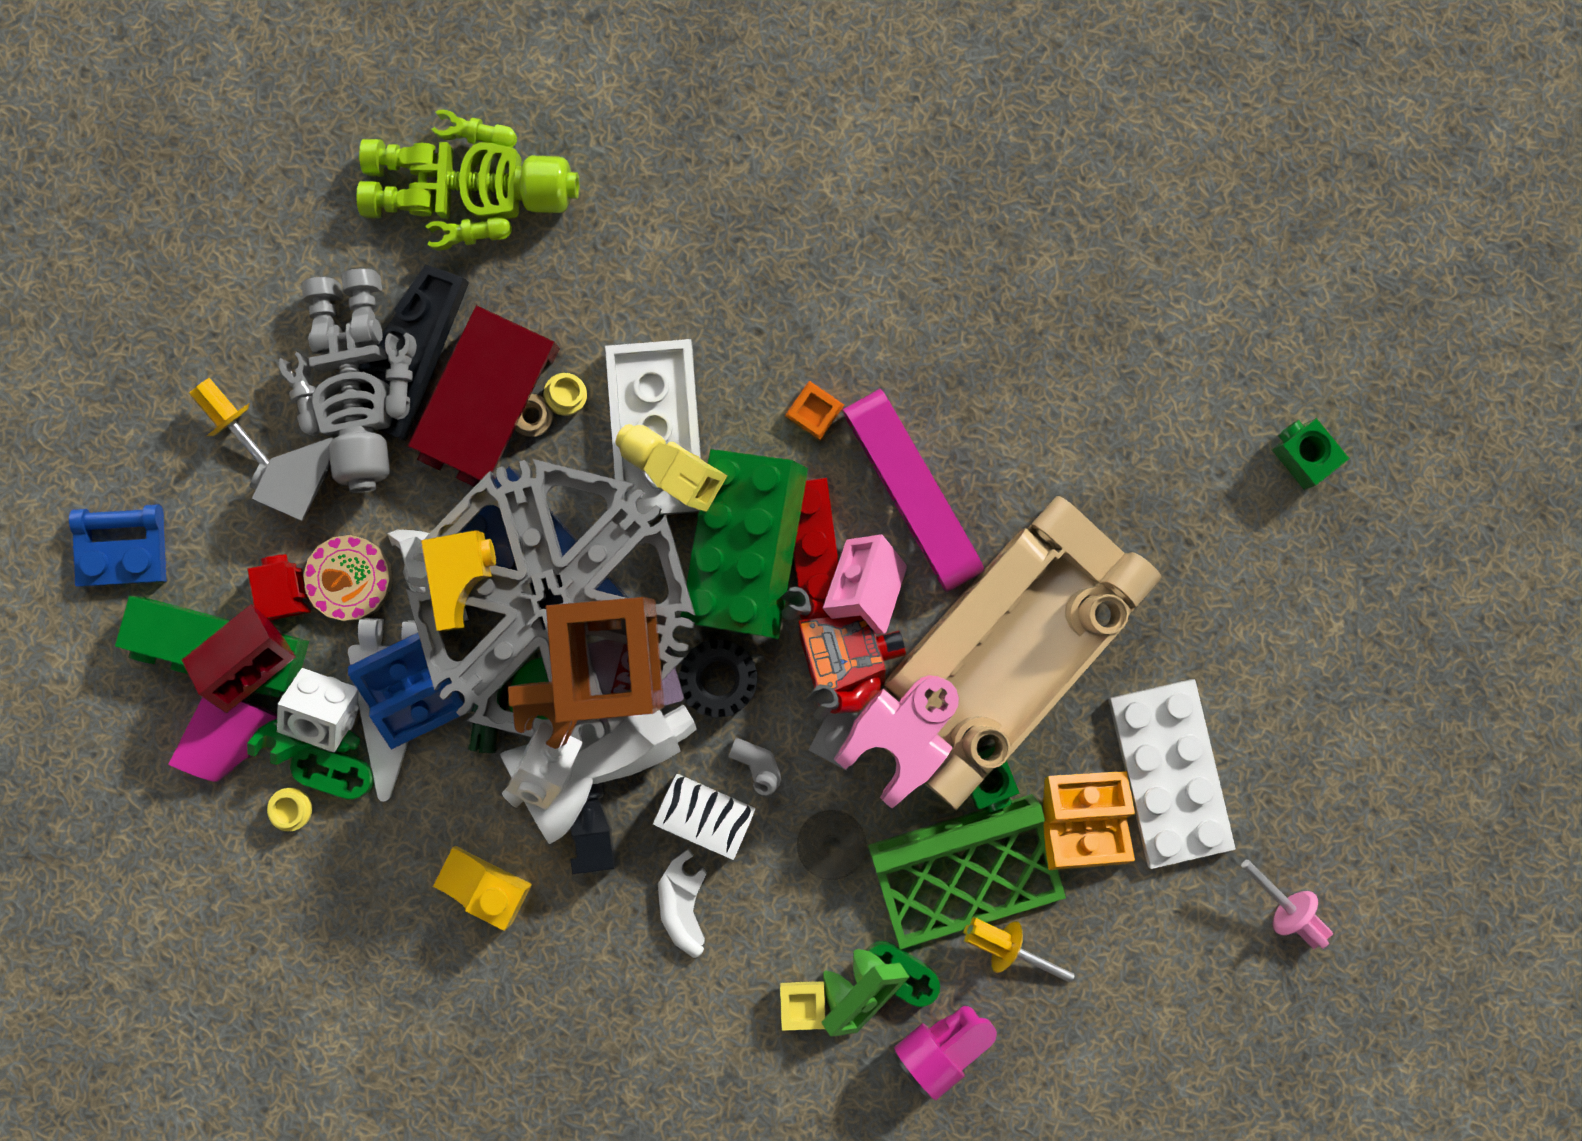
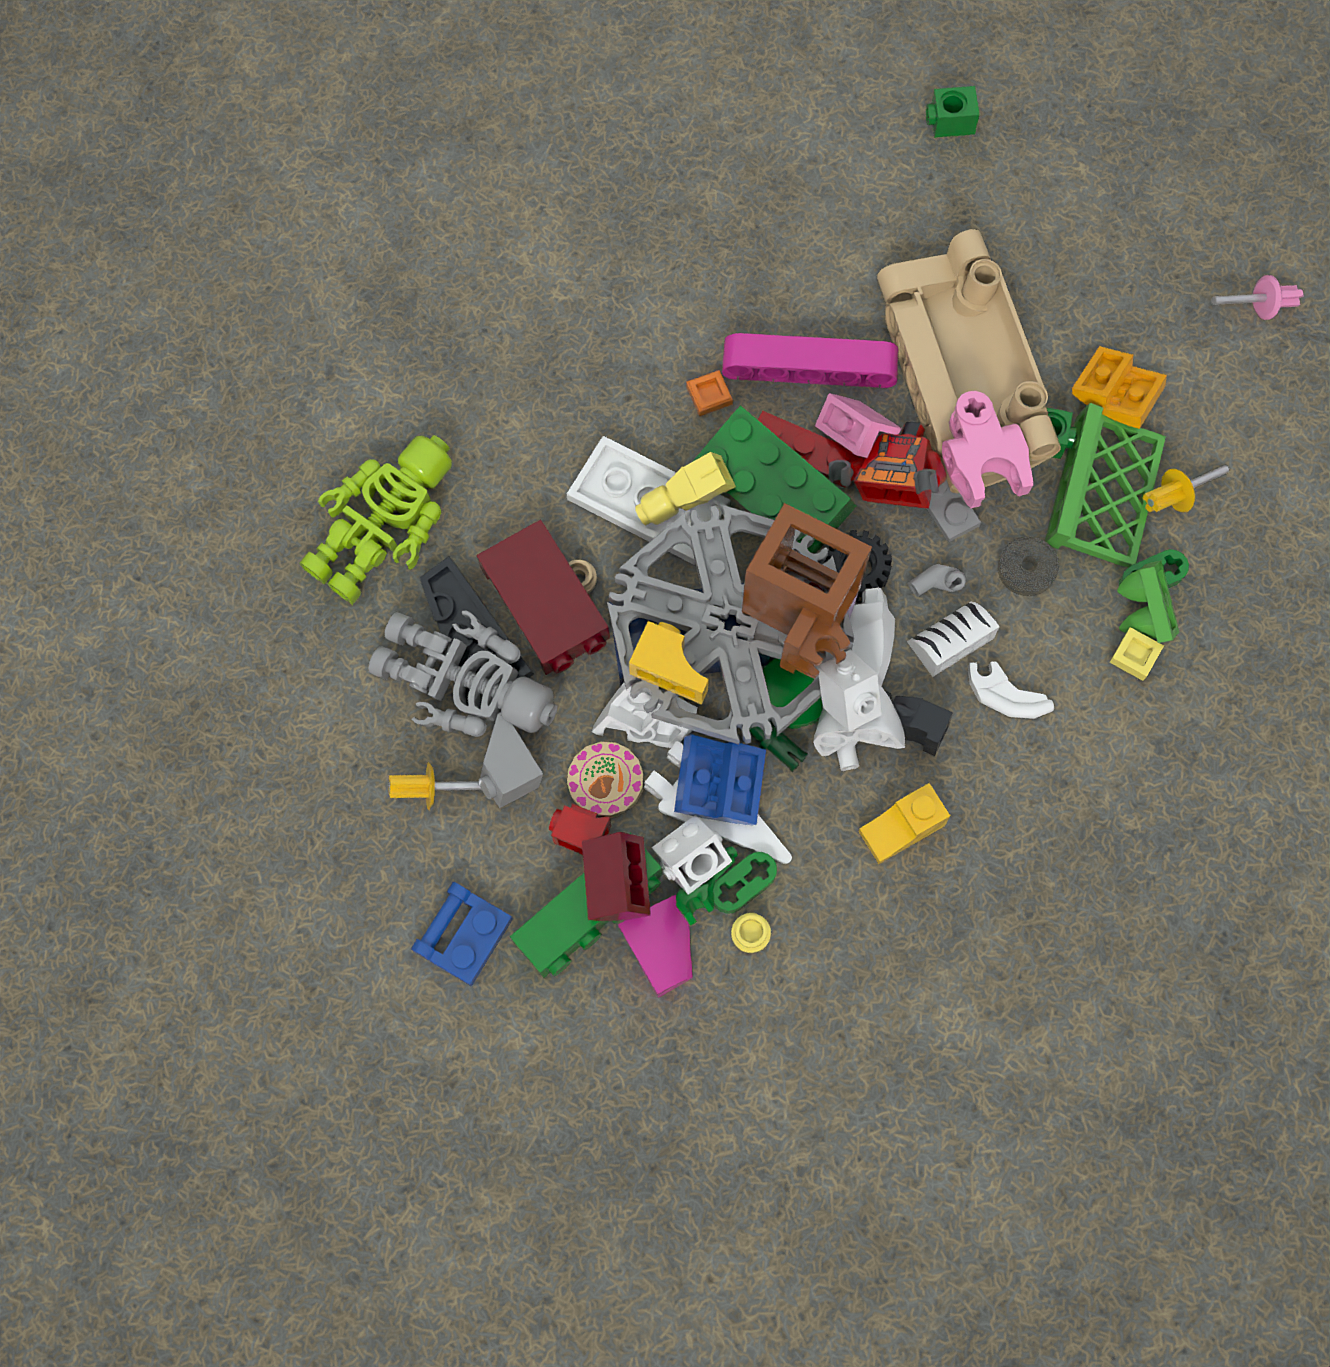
camera: 55 degrees left, 15 degrees down
(565, 394) = (580, 543): light yellow plate -> none
(938, 1054) = (1231, 586): dark pink piece -> none
(1171, 773) = (1119, 319): white plate -> none

